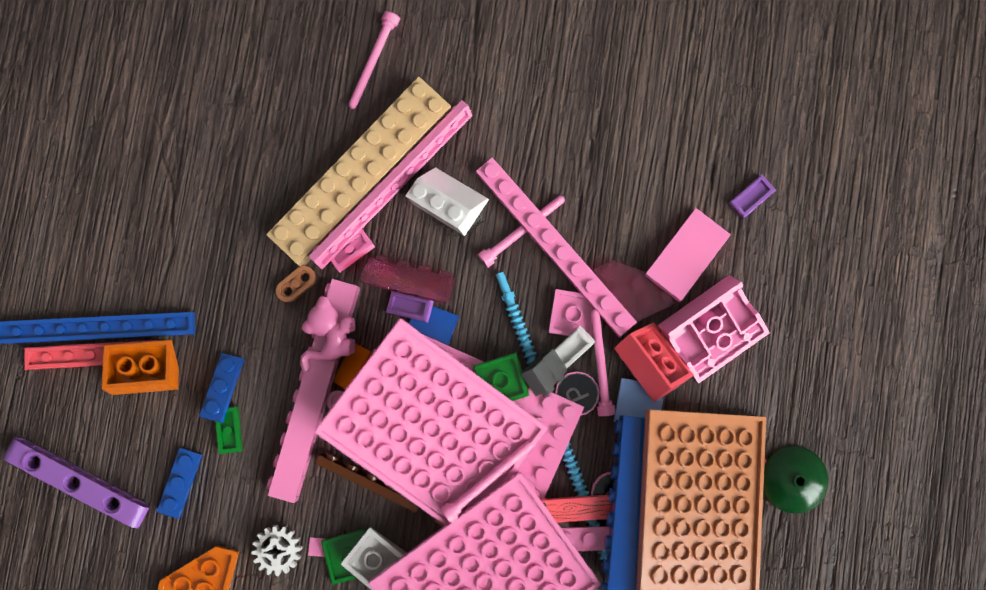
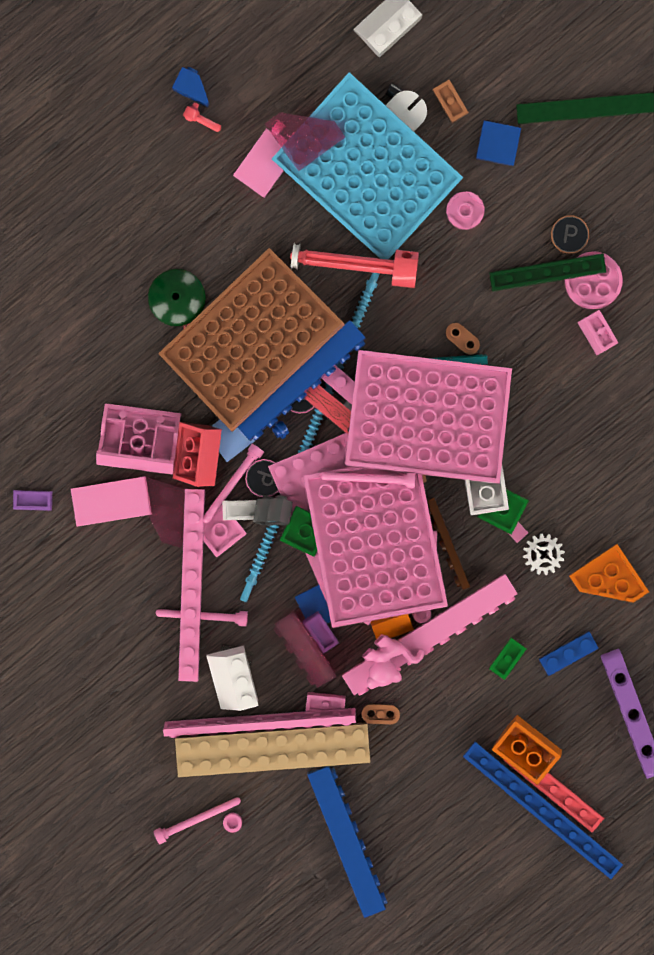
camera: 145 degrees left, 5 degrees up
(221, 388) = (487, 689): blue plate -> none
(228, 152) = (346, 840): none -> blue brick
(340, 84) = (232, 822): none -> bright pink tile
(602, 448) = (280, 430): none -> blue plate

